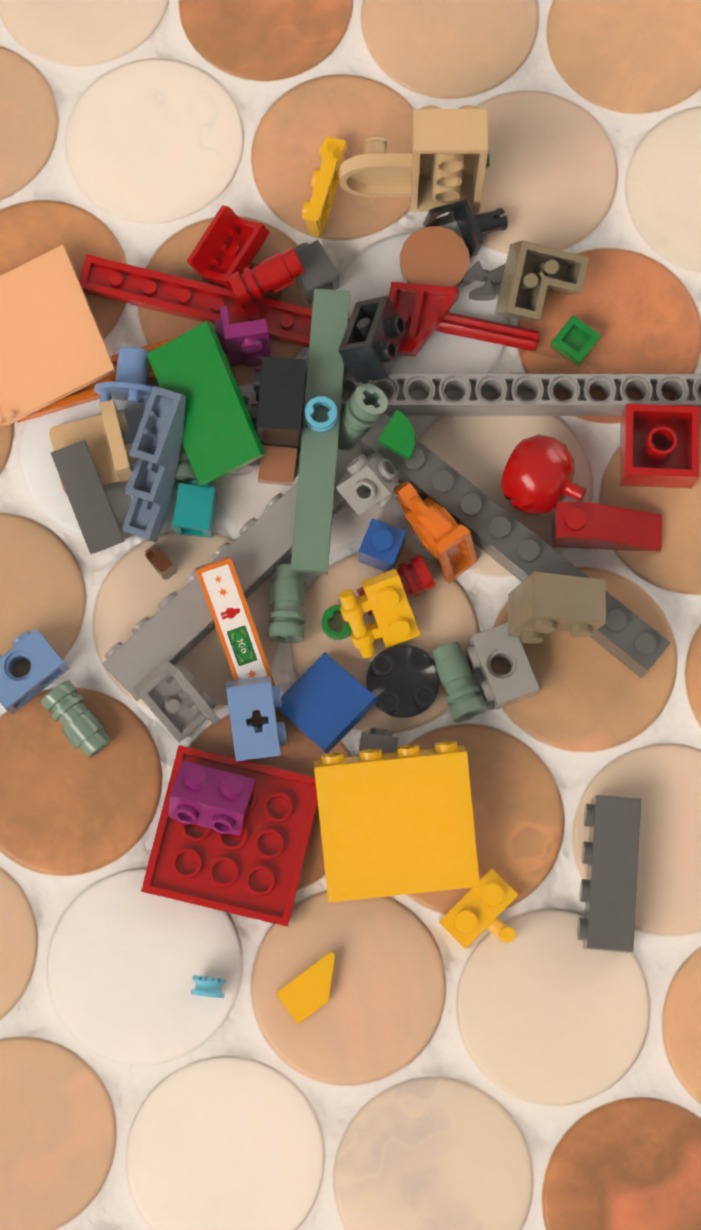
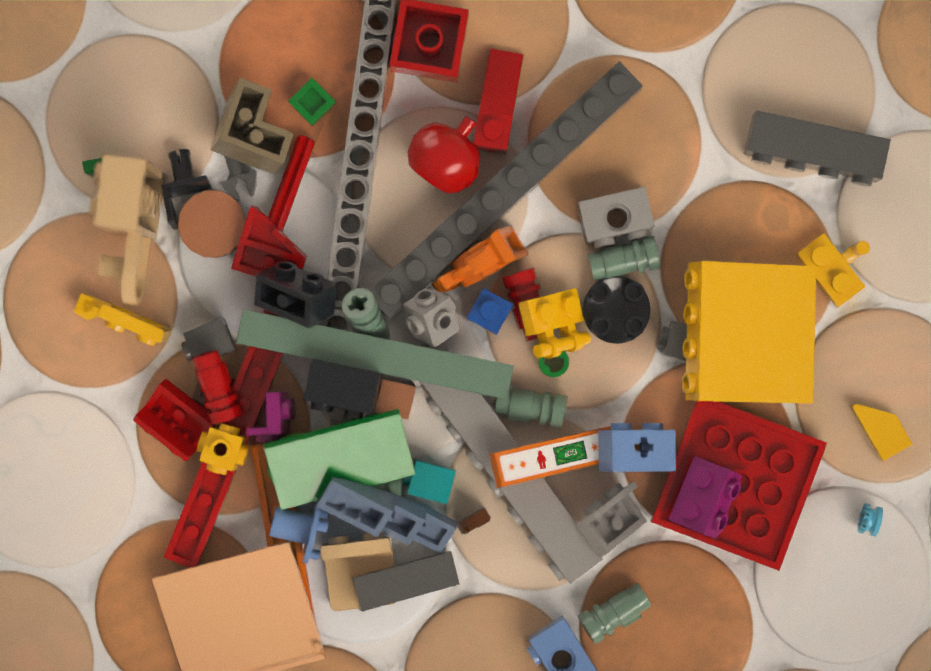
camera: 85 degrees left, 10 degrees up
(203, 291) = (236, 448): none -> yellow brick
(310, 413) = (367, 342): medium azure bush -> none
(326, 703) = (629, 382): blue tile -> none
(399, 436) = (394, 281): green tile -> none
(556, 603) = (577, 165): dark tan brick -> none

